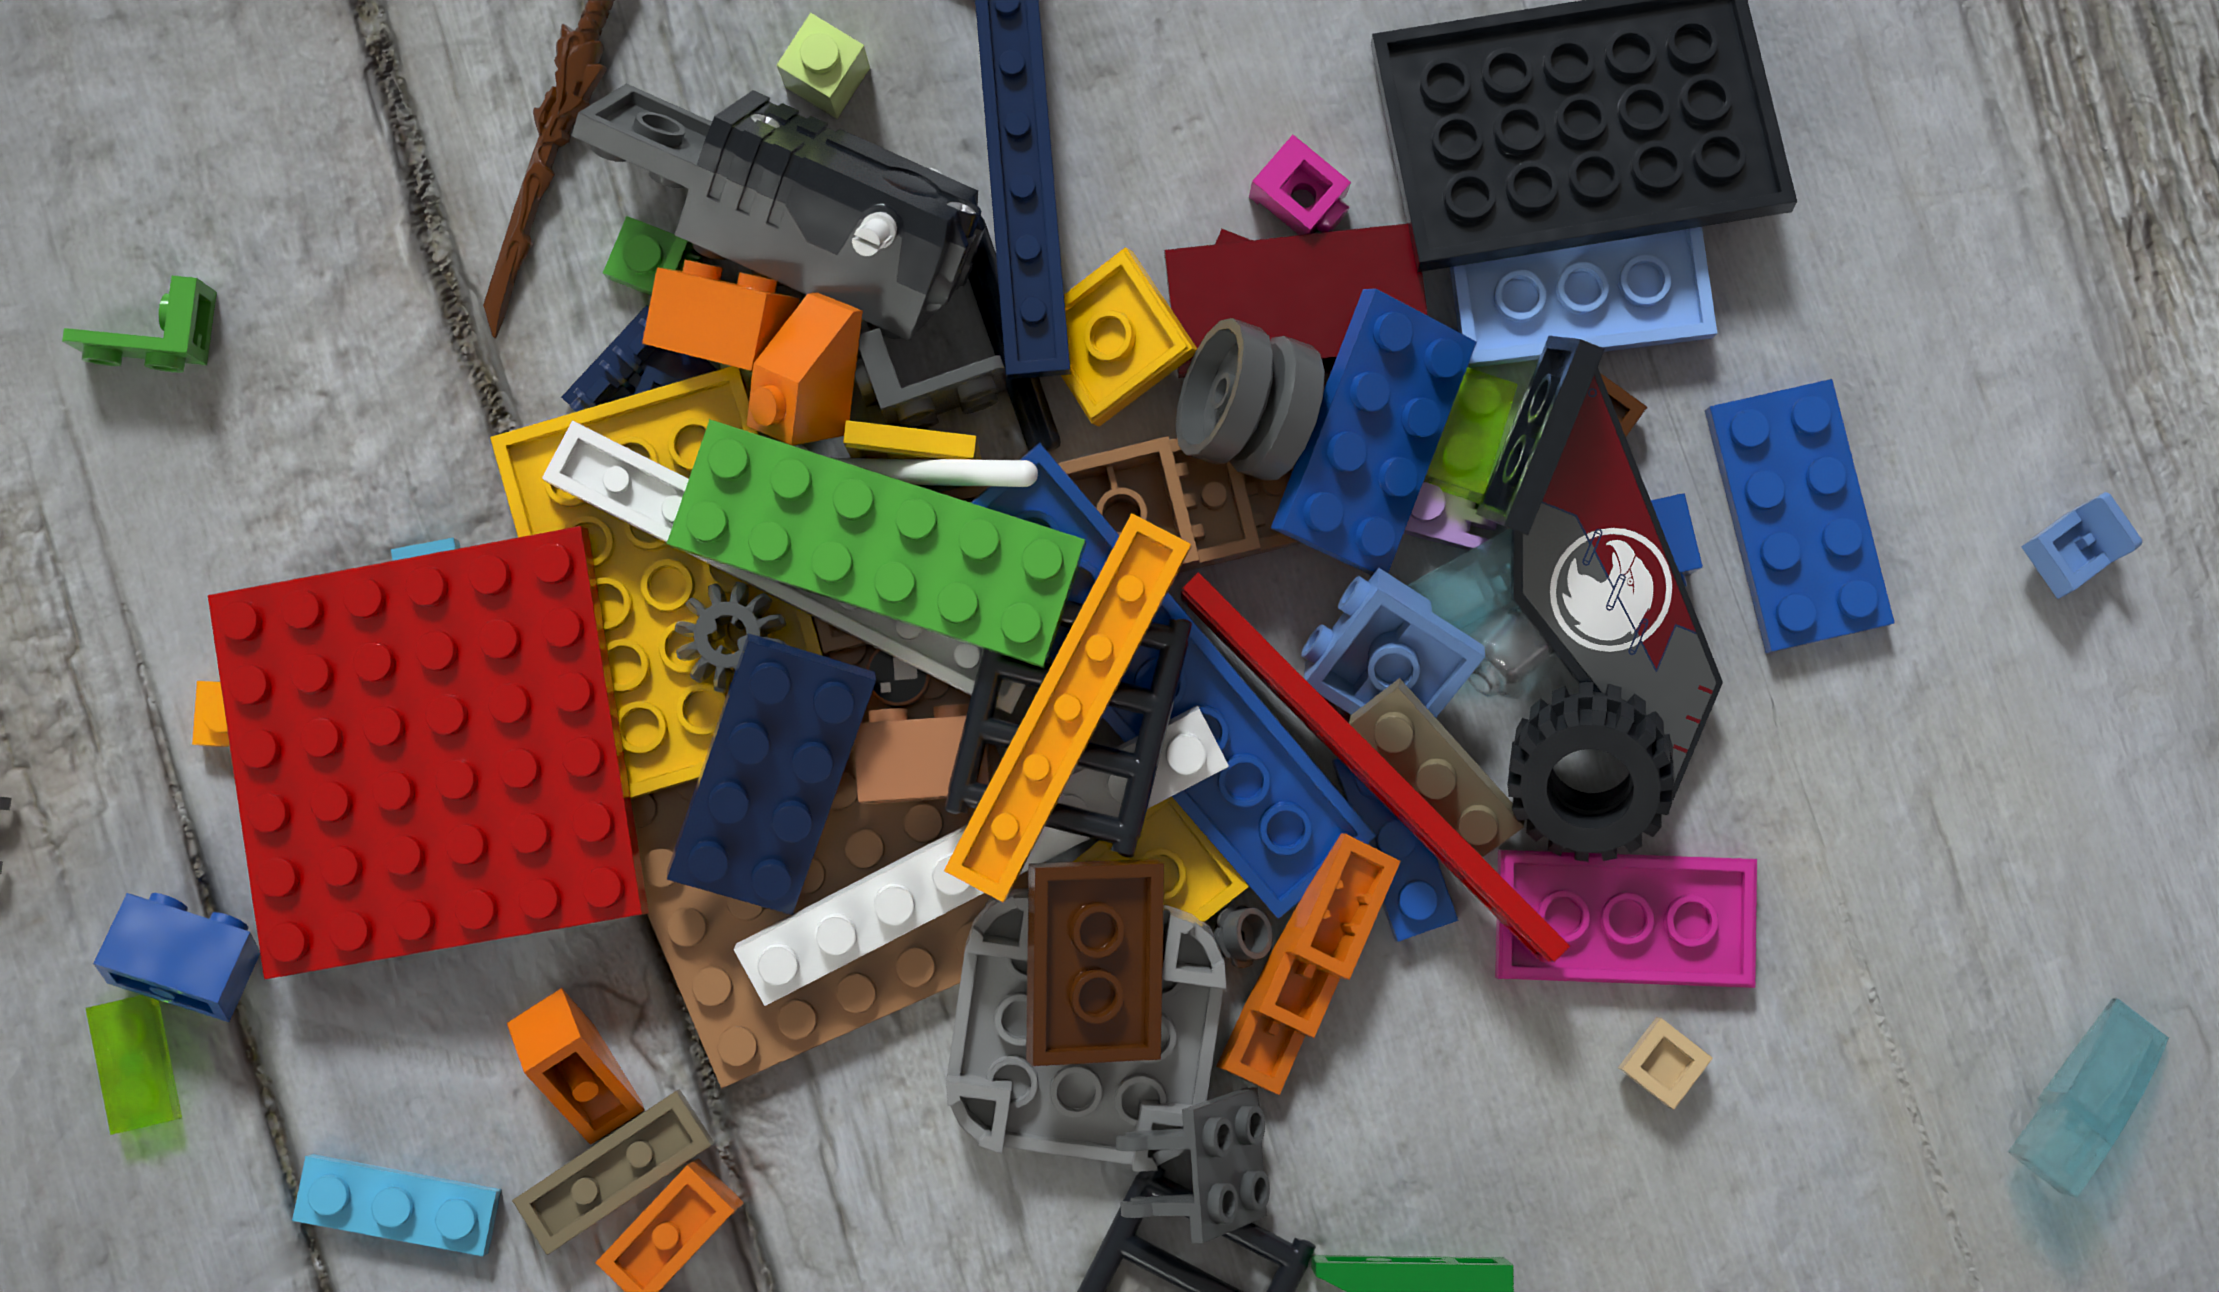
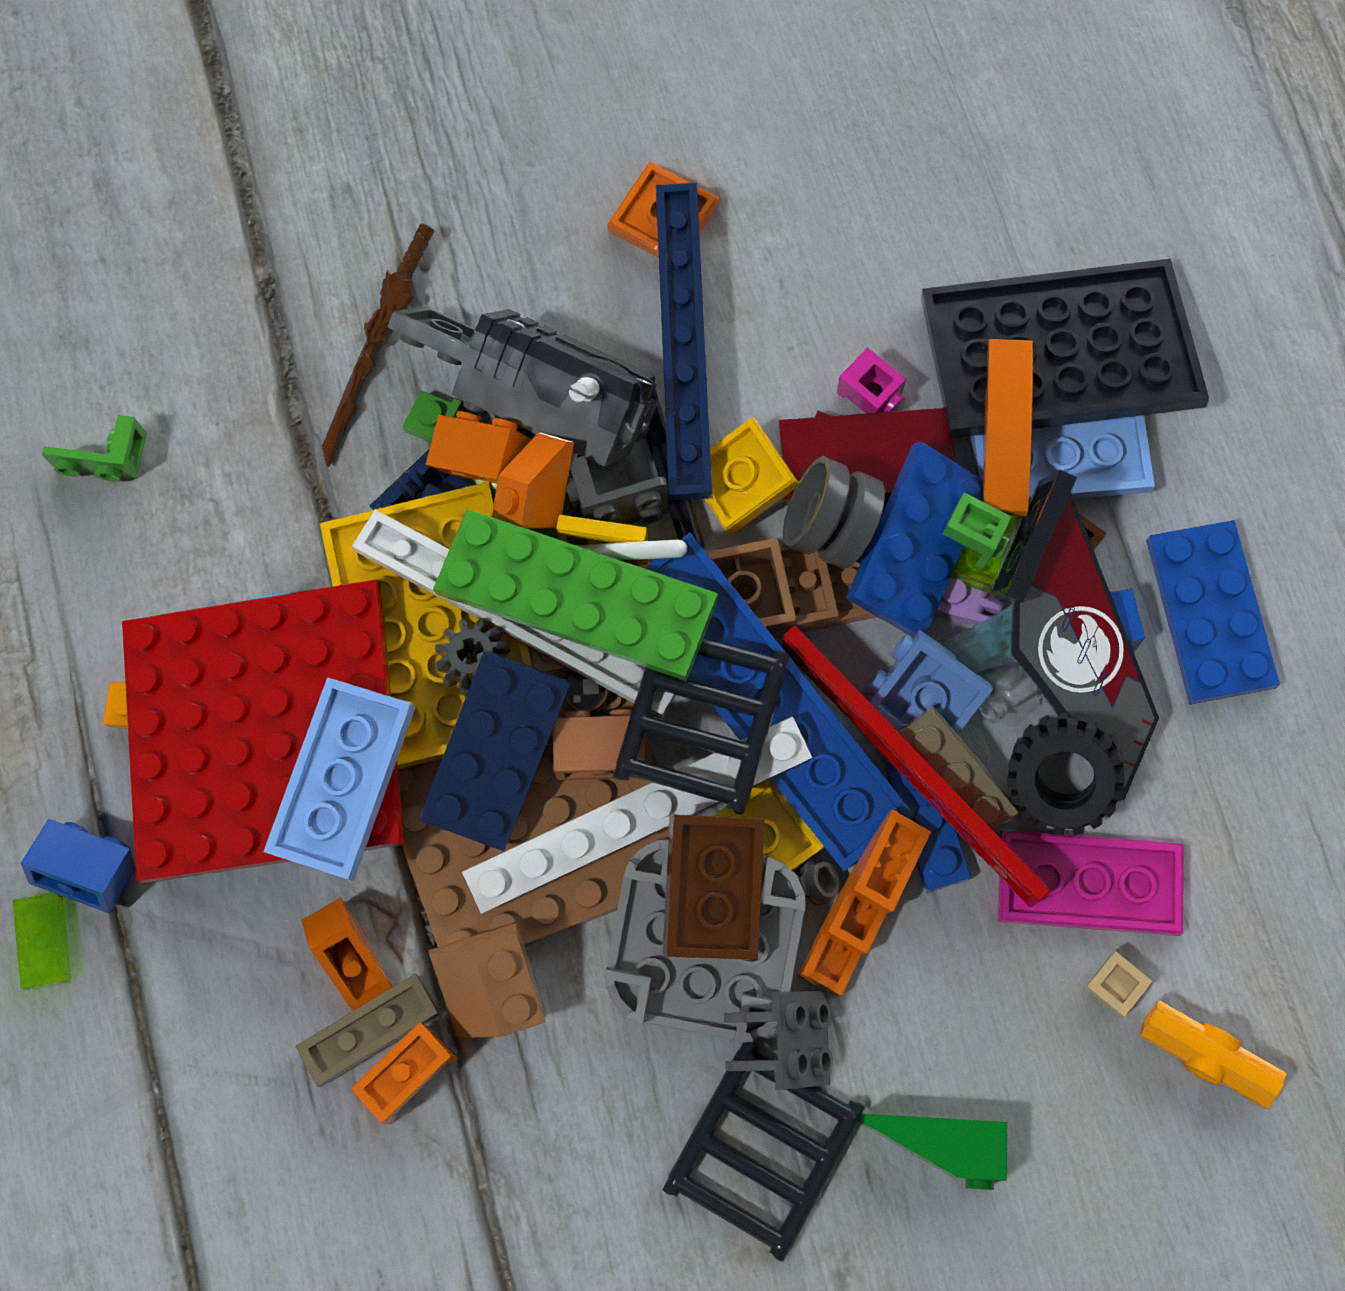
camera: 10 degrees right, 10 degrees down
(396, 1205) = (214, 1048): medium azure plate -> none
(549, 831) = (340, 779): none -> light blue plate
(783, 1103) = (488, 984): none -> medium nougat slope
(823, 65) = (556, 298): yellowish green brick -> none
(1067, 708) = (700, 707): light orange plate -> none
(1462, 416) = (979, 528): none -> bright green bracket
(1502, 258) = (1008, 425): none -> orange slope
(1794, 1155) = (1212, 1054): none -> light orange piece

